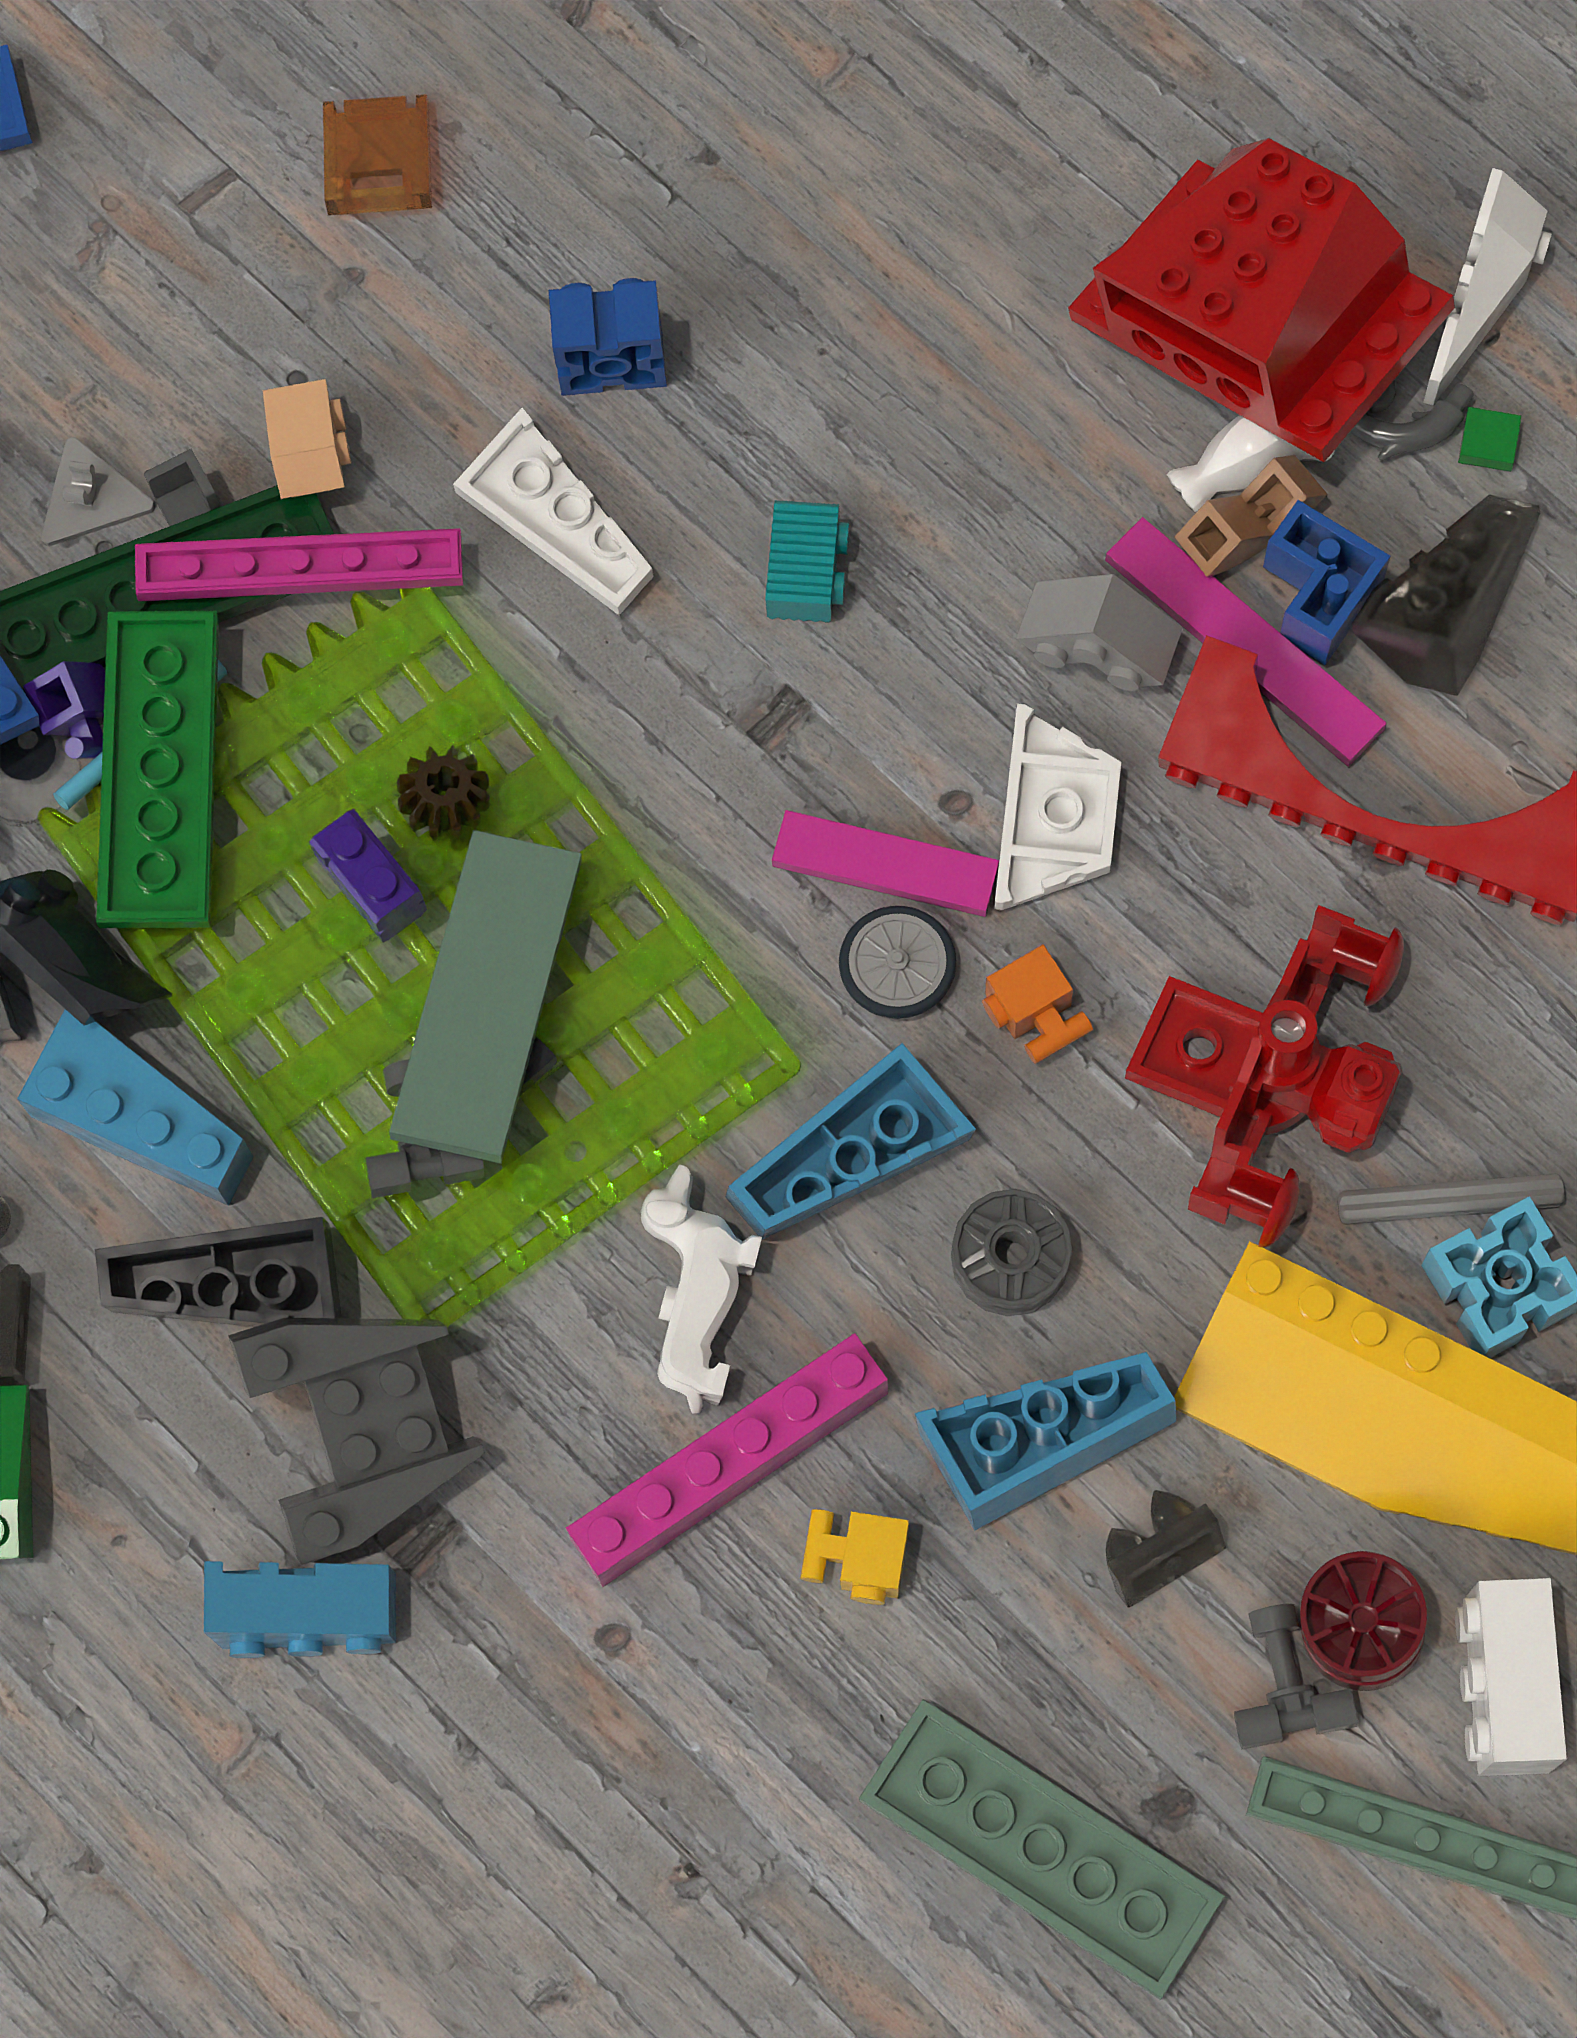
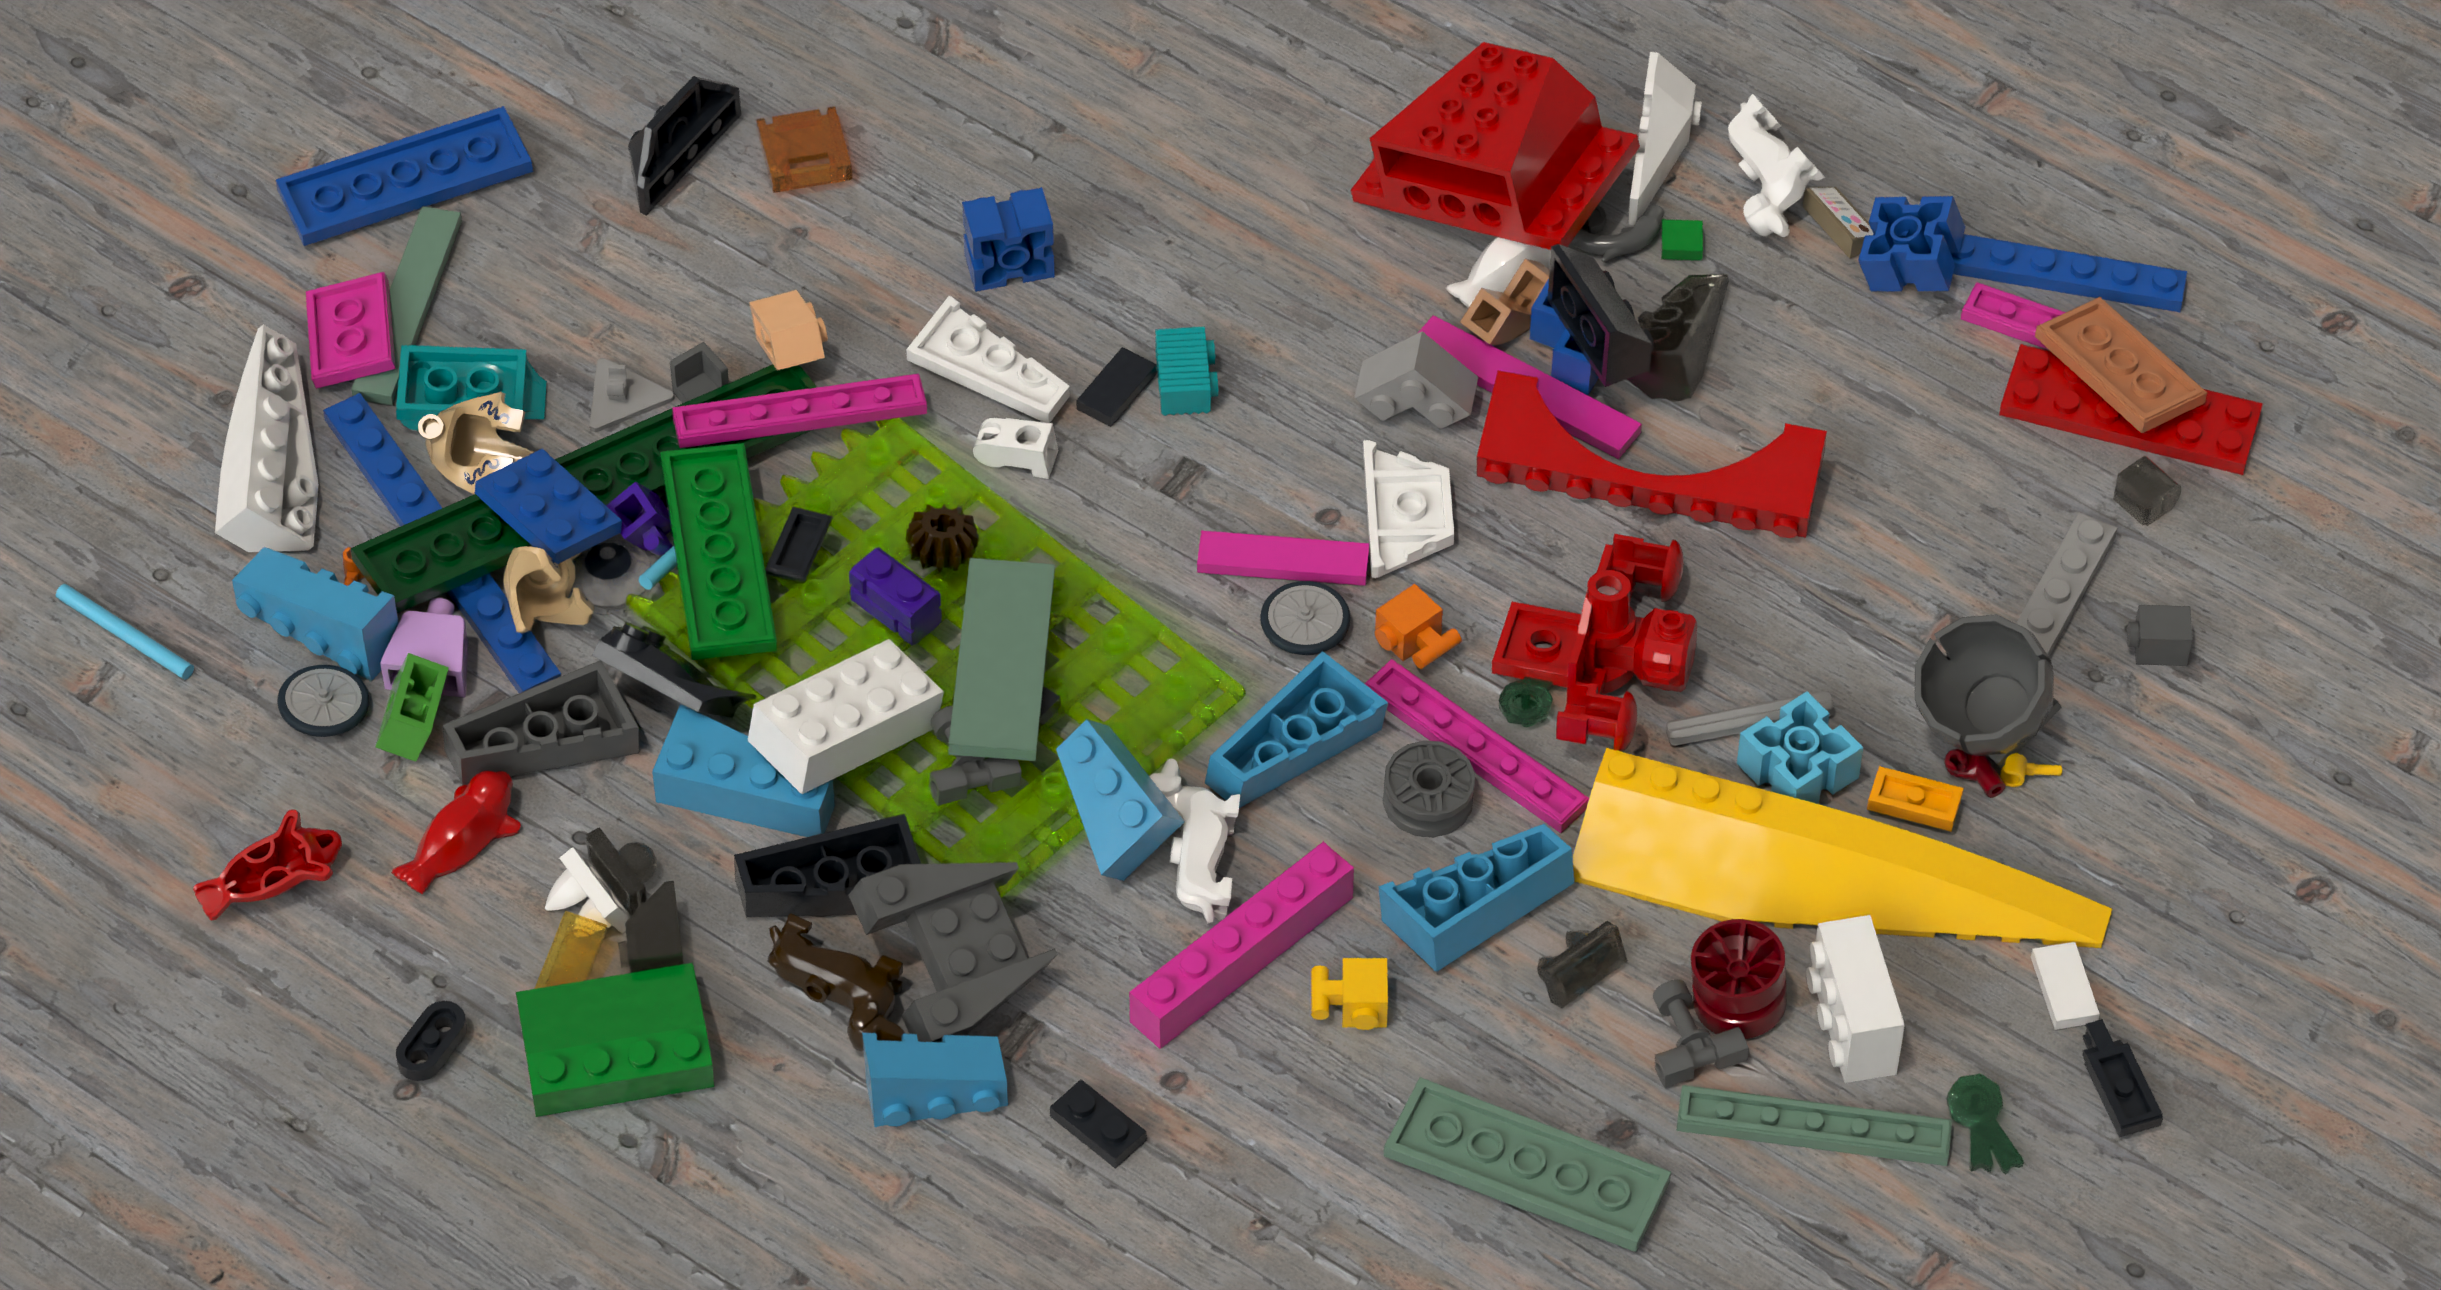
camera: 15 degrees left, 20 degrees down
(215, 1437) = (840, 979): none -> dark brown animal
(218, 122) = (680, 137): none -> black wedge
(263, 771) = (798, 545): none -> black tile
(268, 1061) = (844, 716): none -> white brick
(503, 1694) = (1098, 1123): none -> black plate
(571, 648) = (1017, 445): none -> white leg
(595, 1229) = (1115, 799): none -> dark azure wedge
(715, 570) = (1116, 386): none -> black tile
(1086, 1188) = (1488, 752): none -> dark pink tile
(1163, 1128) = (1526, 701): none -> clear green piece
(1352, 580) = (1597, 316): none -> black slope

